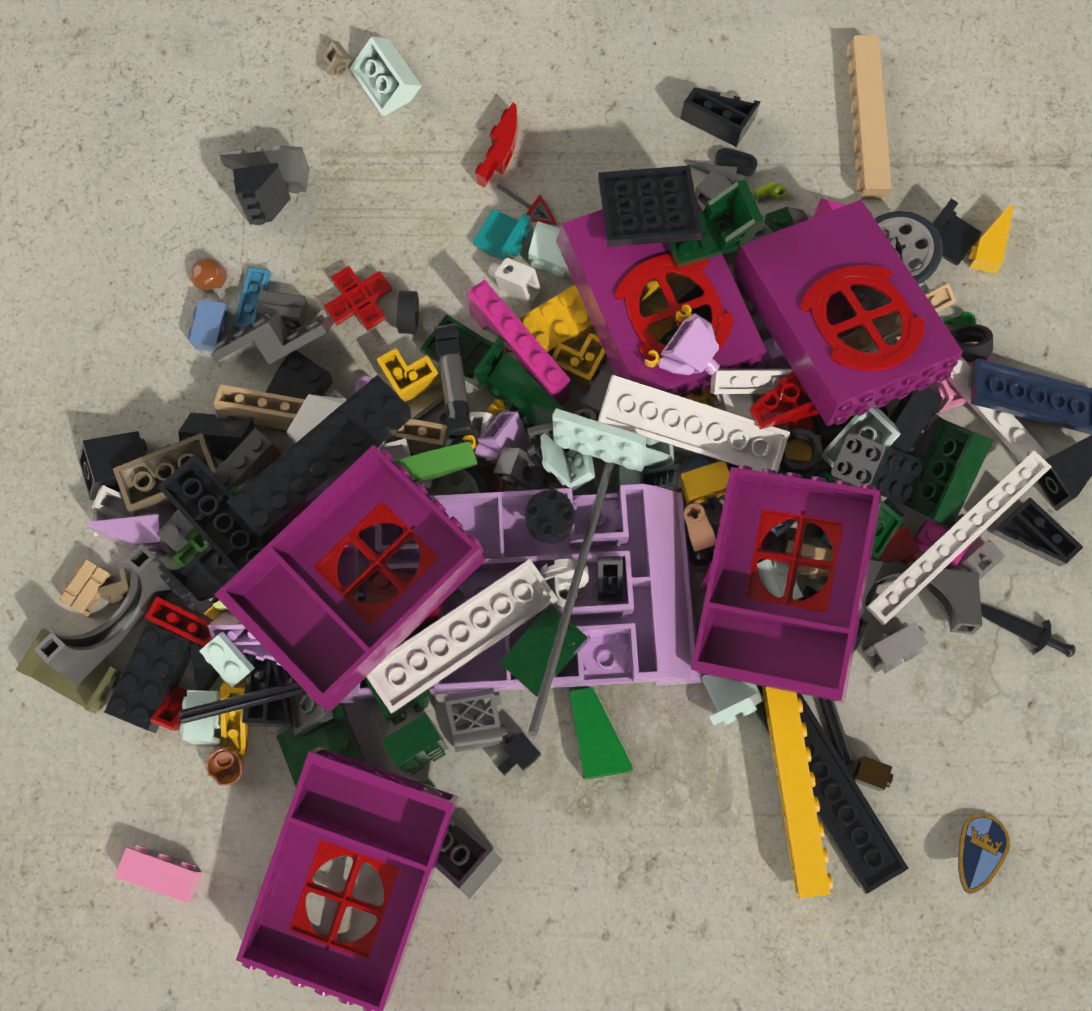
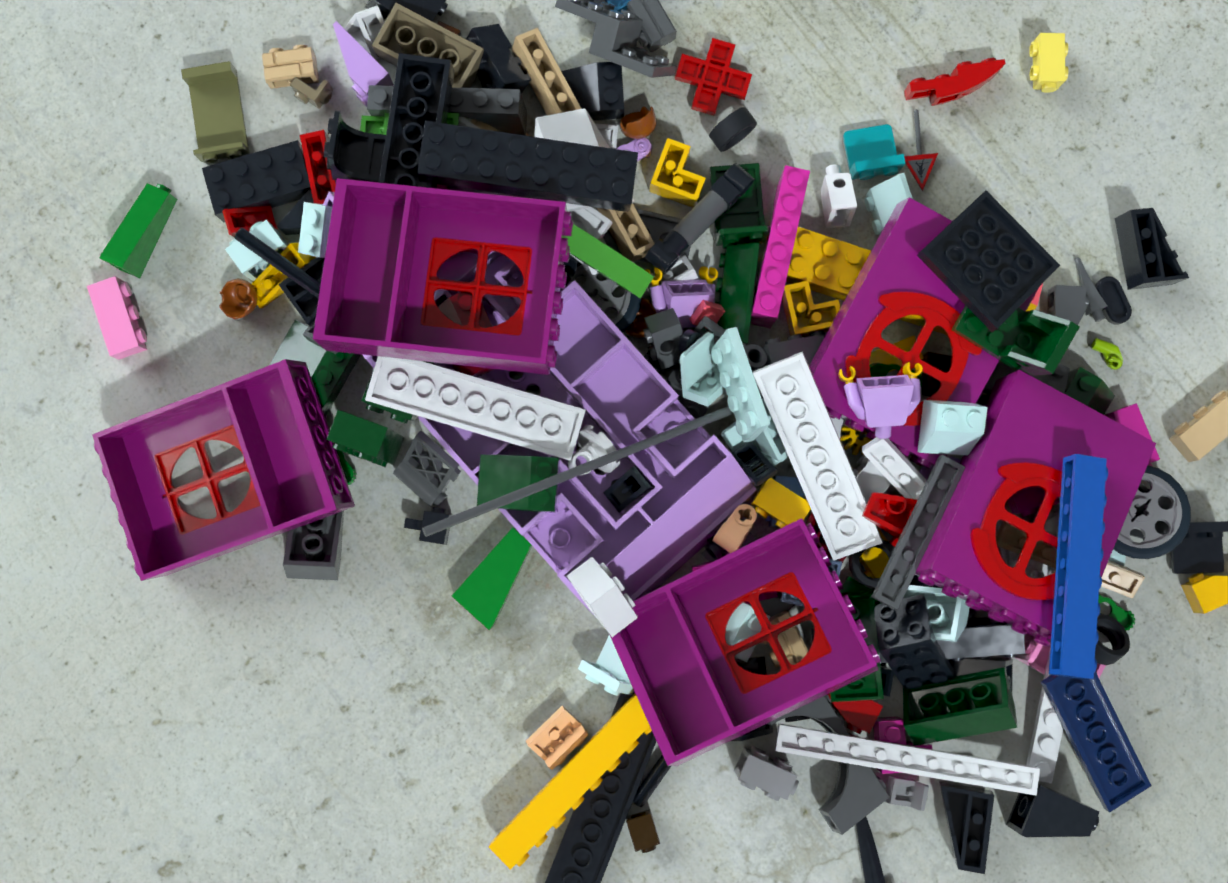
camera: 50 degrees right, 10 degrees up
(80, 654) = (232, 110): dark grey arch -> none
(108, 800) = (140, 230): none -> green slope
(347, 373) = (638, 124): none -> dark orange hair
(521, 428) = (709, 309): none -> coral plate
(538, 78) = (1048, 61): none -> light yellow brick
(549, 516) = (635, 397): black brick -> none
(677, 652) = (603, 595): none -> white brick
(745, 320) = (951, 427): none -> light aqua slope
(754, 783) = (557, 737): none -> light nougat bracket
(802, 399) = (918, 532): none -> dark grey plate
(911, 307) = (1078, 567): none -> blue brick

